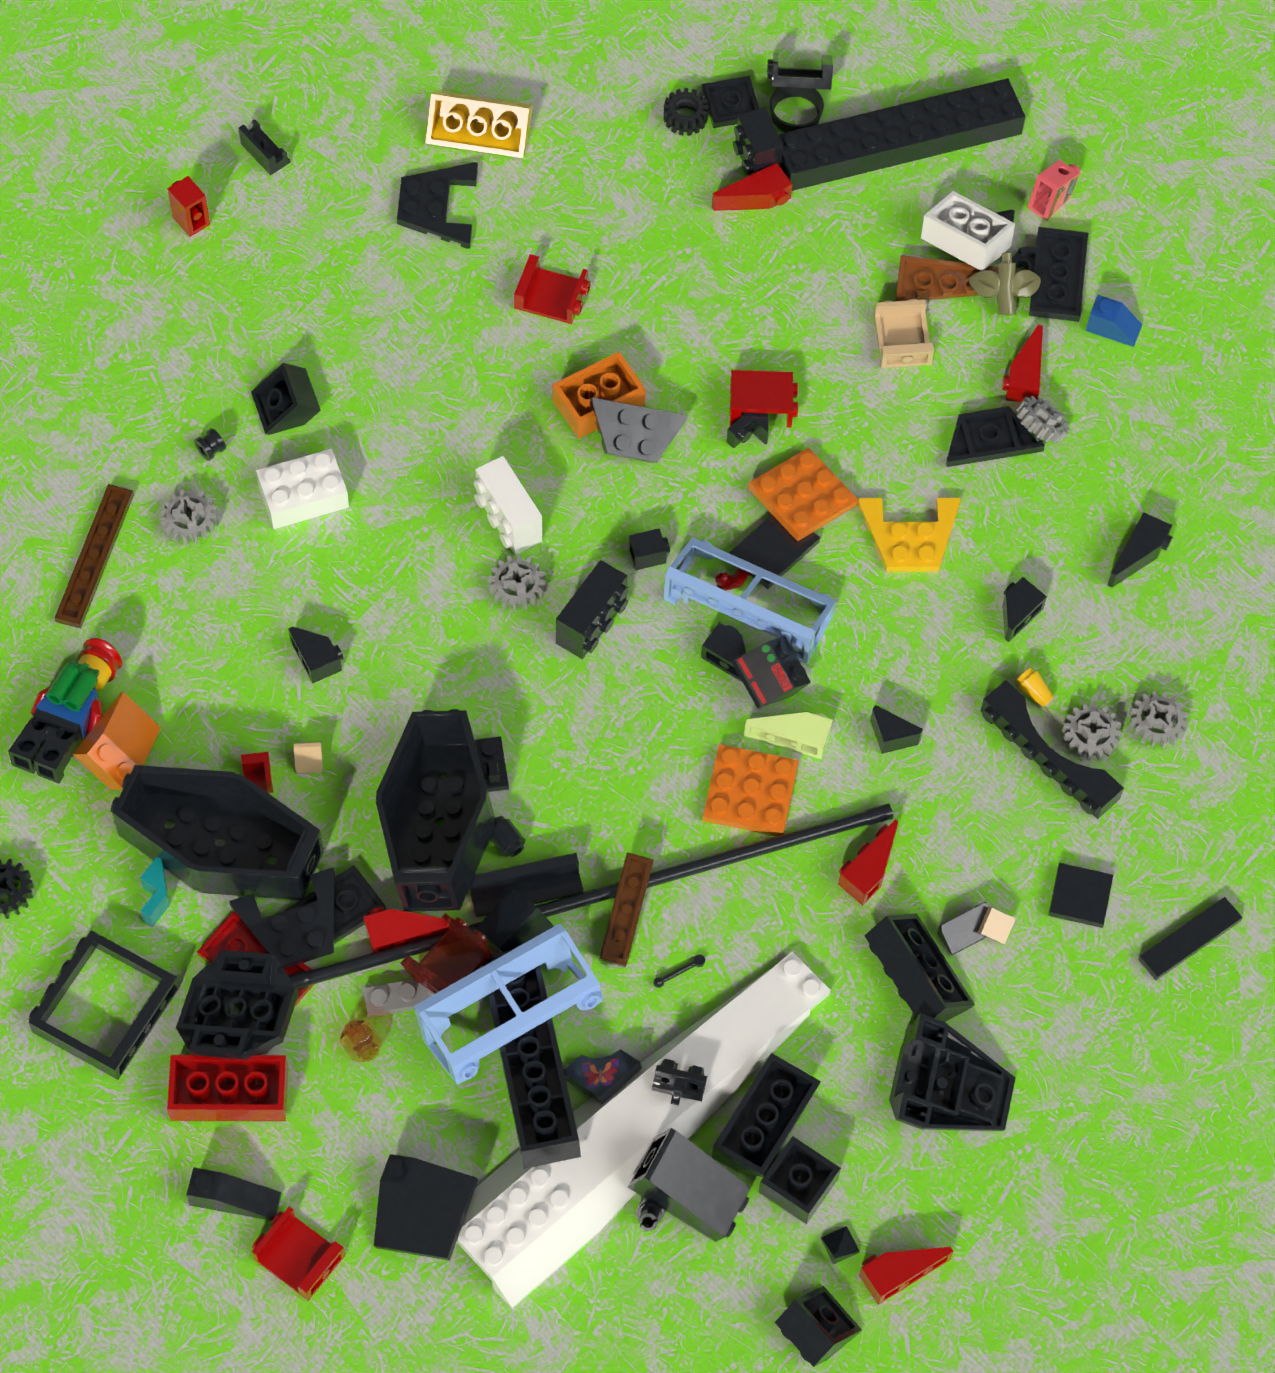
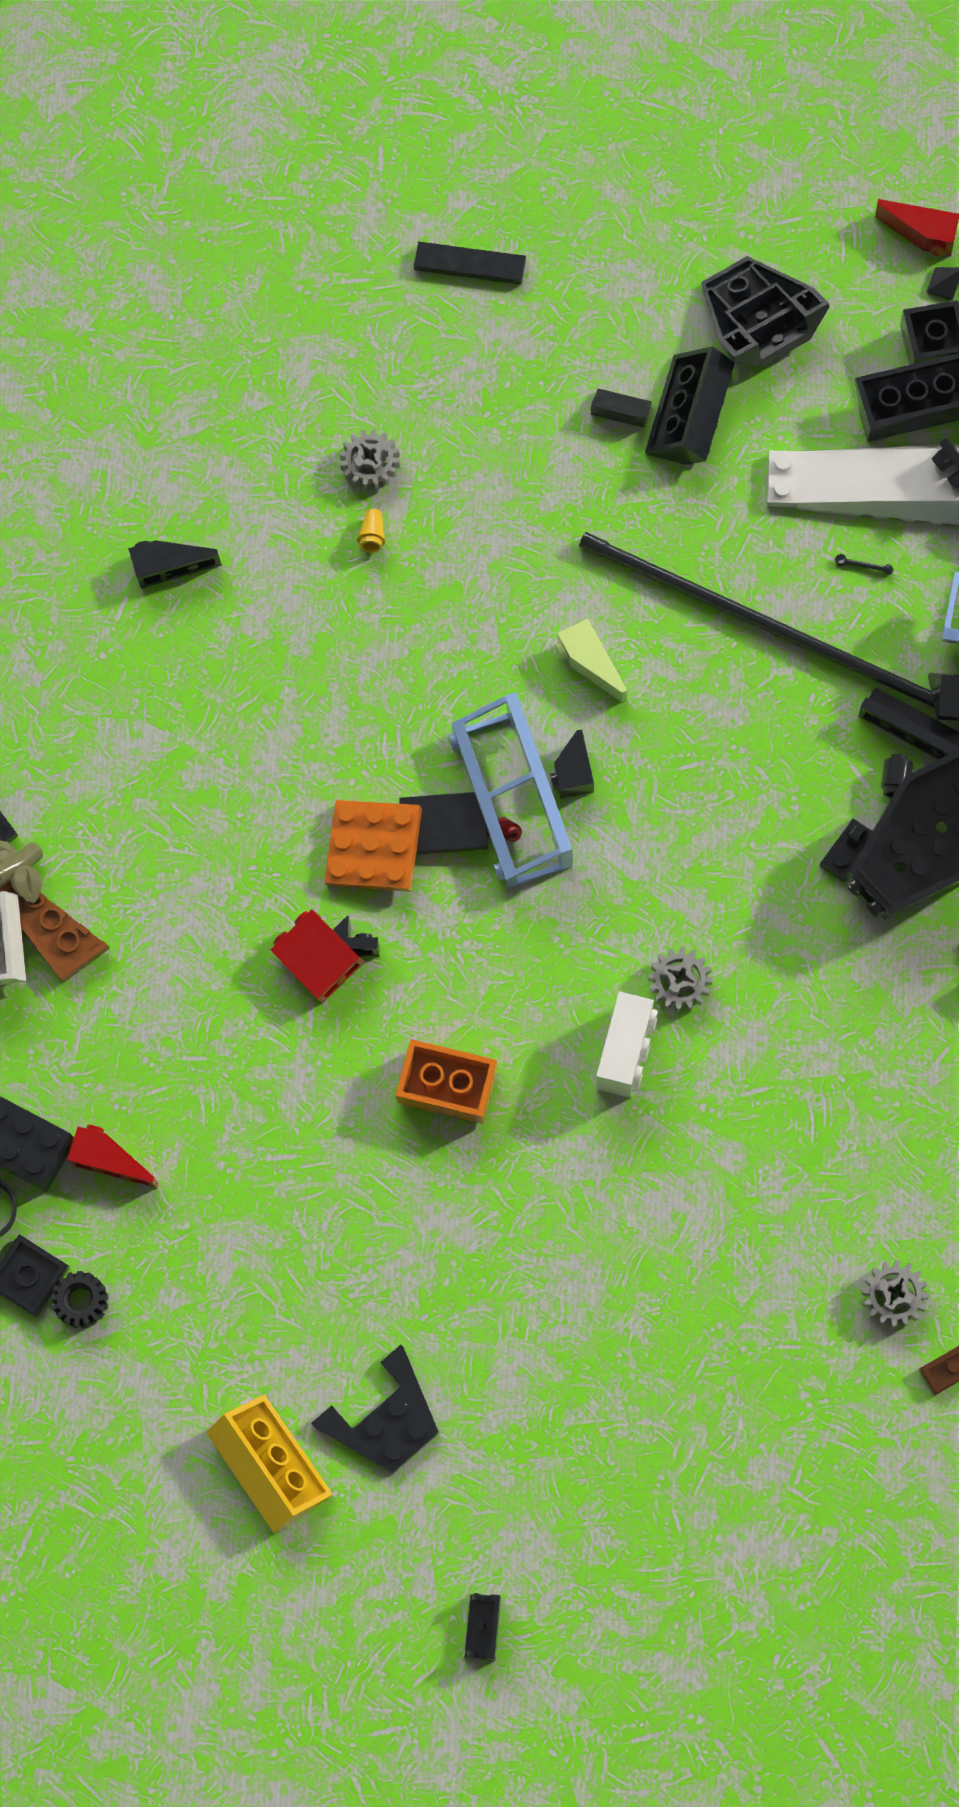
camera: 125 degrees left, 10 degrees up
(188, 206) = (617, 1615): red brick -> none
(210, 444) = (814, 1349): black wheel -> none
(285, 399) = (710, 1332): black slope -> none
(302, 488) = (776, 1228): white brick -> none
(316, 653) = (903, 1065): black slope -> none
(550, 292) = (379, 1227): red panel -> none
(592, 610) = (649, 890): black brick -> none
(626, 910) = (862, 636): reddish brown tile -> none
(635, 430) = (450, 1017): wing -> none
(648, 549) = (545, 911): black brick -> none
(750, 790) = (669, 649): orange plate -> none
(757, 141) = (63, 1192): black brick -> none
(771, 672) = (565, 709): black slope -> none
(866, 872) = (647, 507): red slope -> none
(893, 731) = (518, 592): black slope -> none
(902, 333) = (139, 910): tan panel -> none
(910, 544) = (332, 729): yellow wing -> none
(990, 436) = (173, 758): black wing -> none
(996, 925) = (600, 387): tile -> none
(1020, 606) = (313, 599): black slope -> none
(1025, 370) = (80, 785): red slope -> none
(1043, 419) = (120, 726): light grey gear -> none
(1080, 895) = (512, 359): black tile -> none
(1089, 786) = (412, 525): black arch -> none
(1158, 719) = (318, 432): light grey gear -> none

